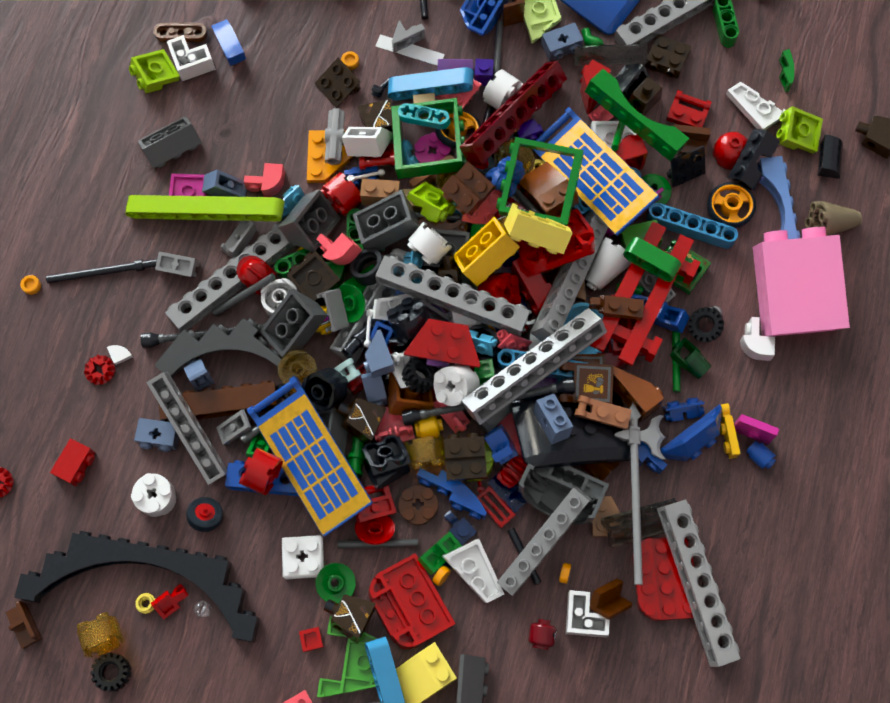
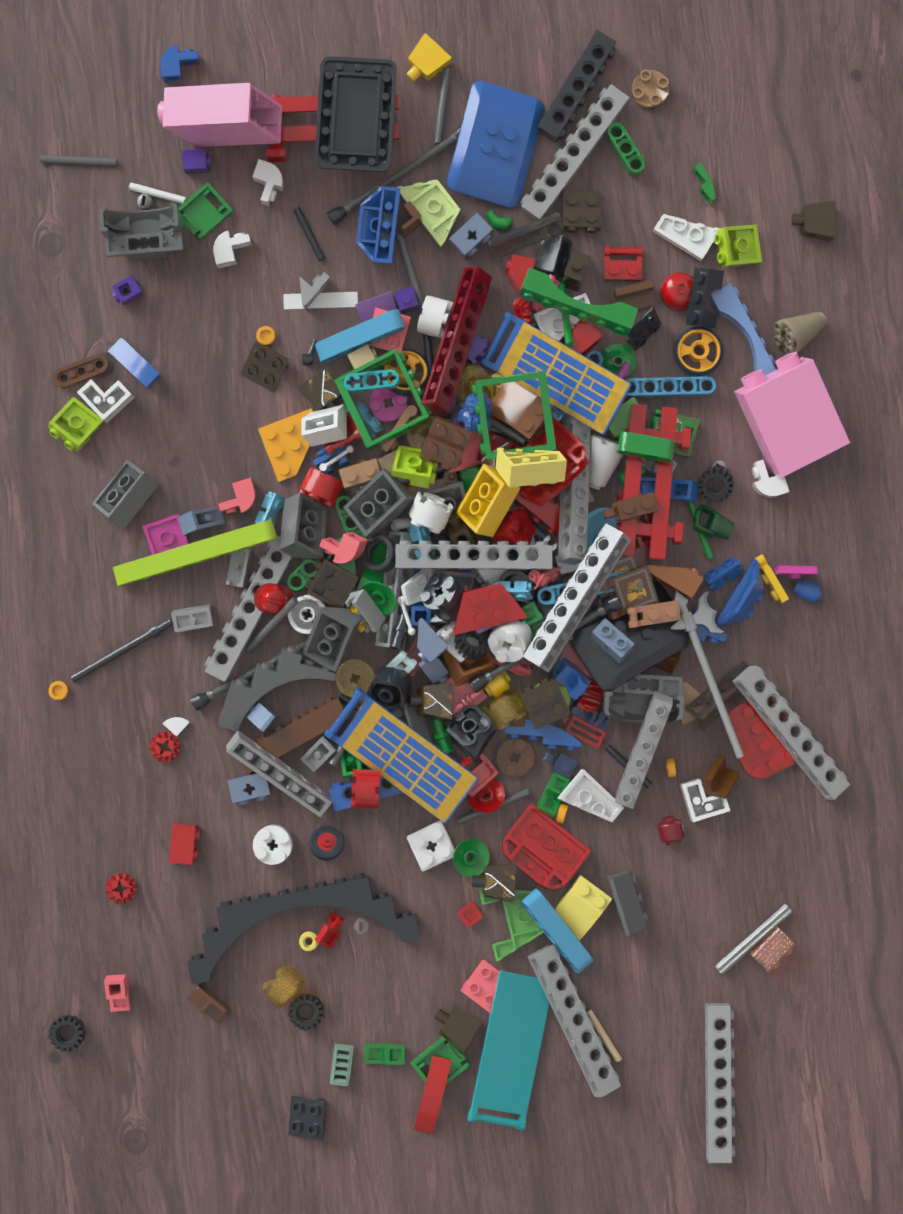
camera: 25 degrees left, 15 degrees up
(333, 136) = (289, 429): light grey piece -> none
(584, 112) = (522, 310): none -> red gear
(830, 157) = (776, 262): black brick -> none

